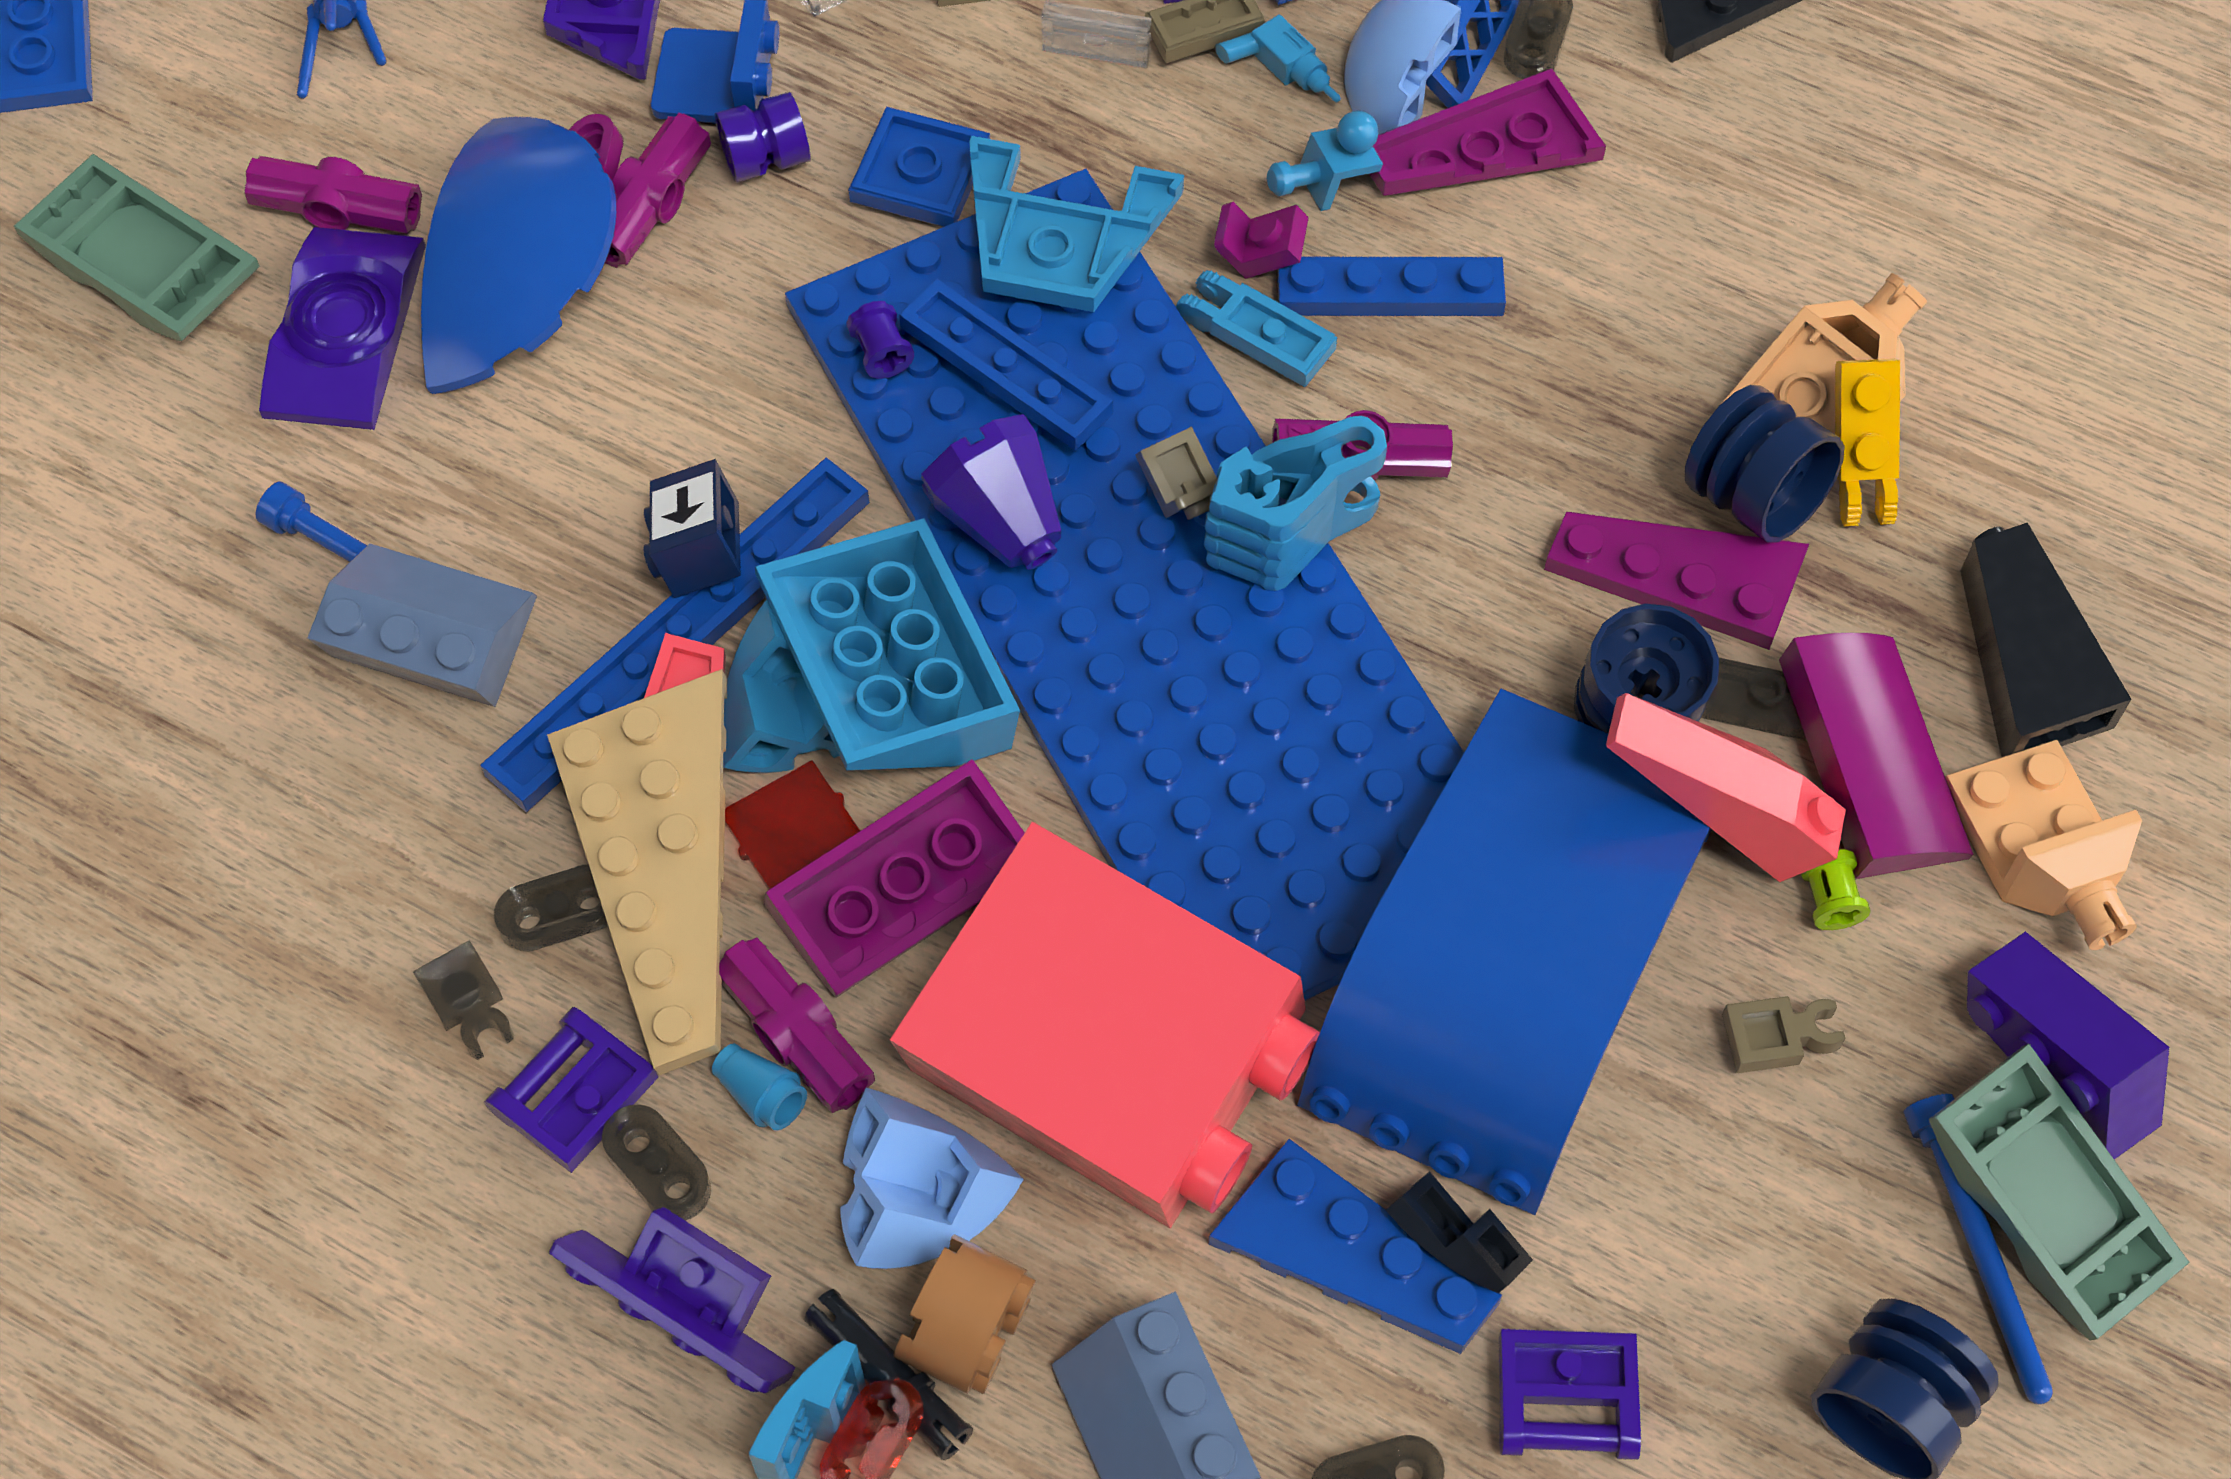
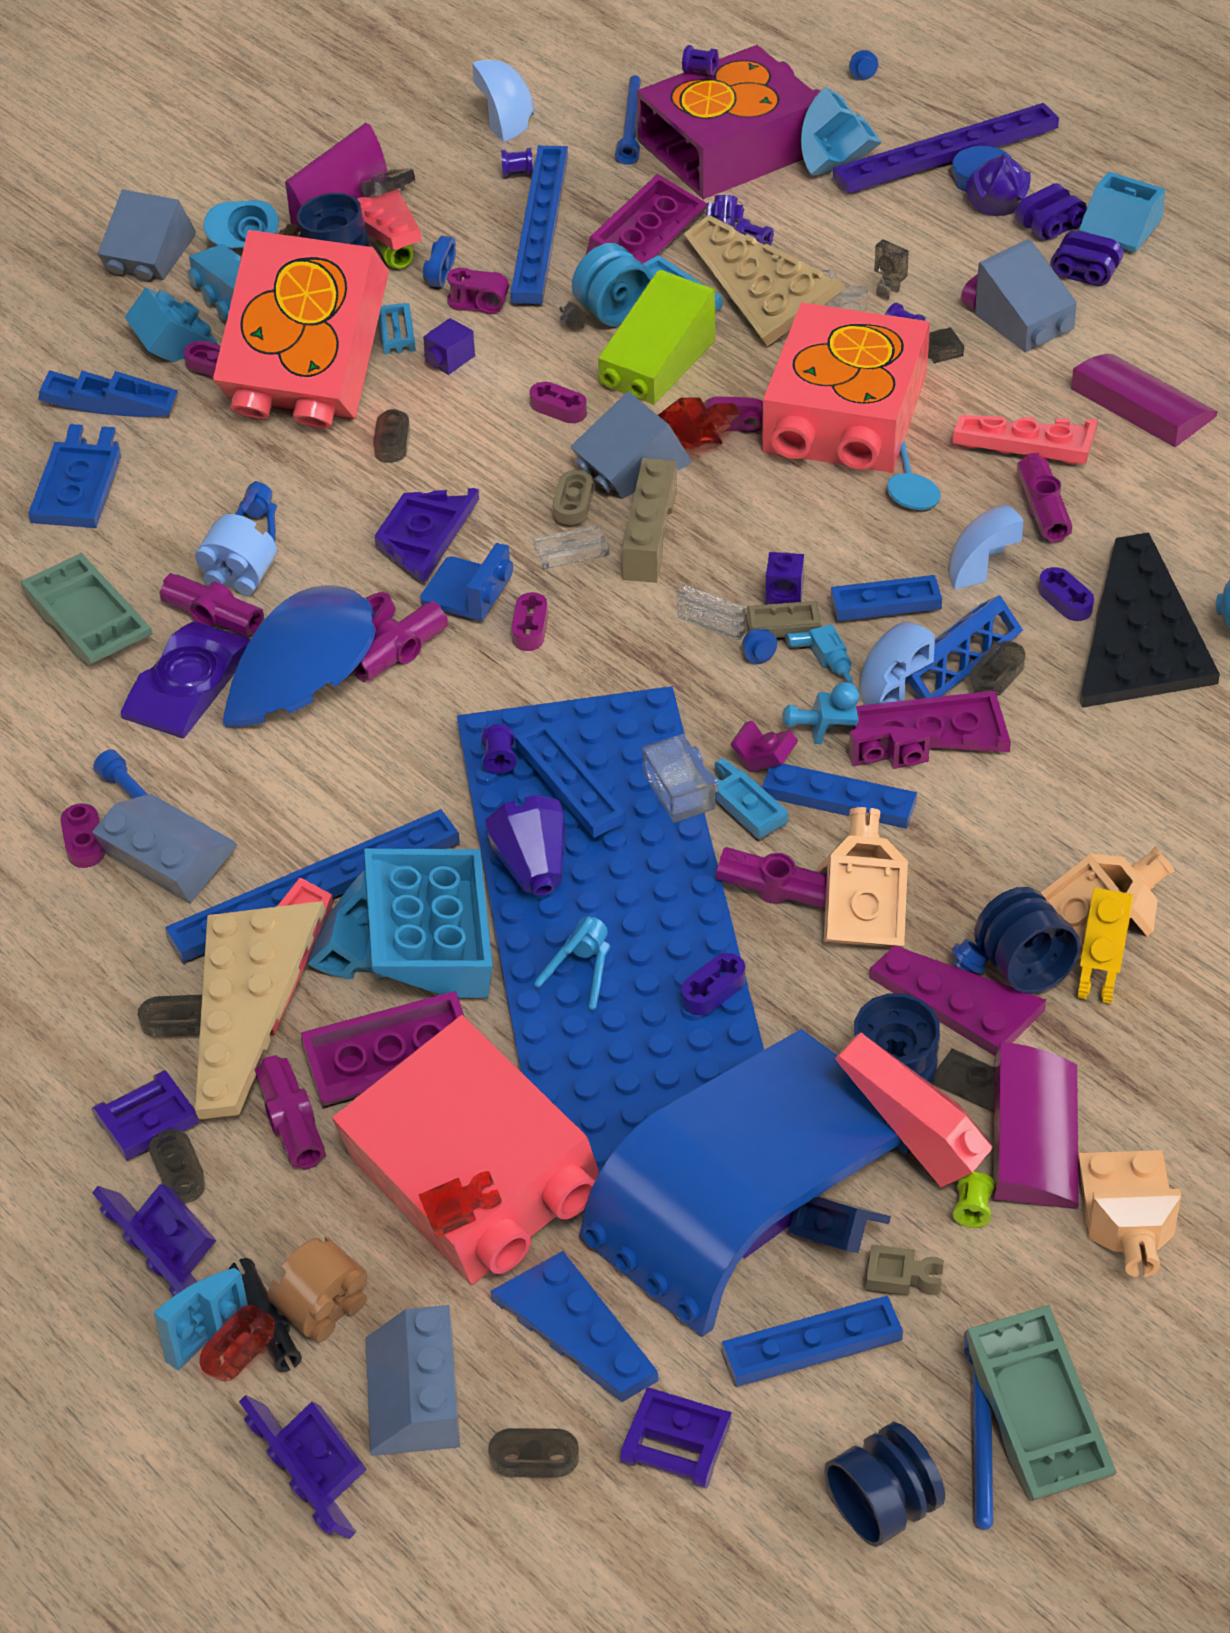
camera: 20 degrees right, 15 degrees down
(280, 632) = (80, 843): none -> magenta plate
(342, 102) = (235, 553): none -> light blue brick
(462, 993) = (104, 1049): clear smoke plate -> none
(693, 529) = (342, 827): dark blue brick -> none
(760, 1086) = (256, 1141): dark azure cone -> none
(763, 137) = (478, 625): dark purple wheel -> none
(789, 823) = (334, 1002): clear red piece -> none
(839, 107) = (524, 621): none -> magenta beam
(916, 168) = (569, 664): blue plate -> none
(916, 1184) = (323, 1206): light blue brick -> none
(1058, 247) = (628, 721): dark azure wing -> none
(1135, 628) = (584, 942): none -> dark azure plant
(1141, 1145) = (452, 1205): none -> clear red plate
(1167, 323) = (679, 777): none -> clear brick
(1179, 474) = (650, 863): dark tan bracket -> none
(1186, 72) = (759, 645): none -> blue plate
(1273, 542) = (709, 889): dark azure piece -> none
(1333, 641) = (717, 987): none -> dark purple beam
(1447, 187) = (899, 744): none -> magenta slope
(1476, 1249) = (650, 1338): black slope -> none
(1499, 430) = (865, 886): none -> light nougat plate
(1679, 504) = (969, 957): none -> blue plate
(1683, 989) = (833, 1222): none -> dark blue panel
(1698, 1181) = (812, 1340): none -> blue plate
(2035, 647) = (1171, 1094): black slope -> none
(2086, 1041) = (1092, 1325): dark purple wedge -> none

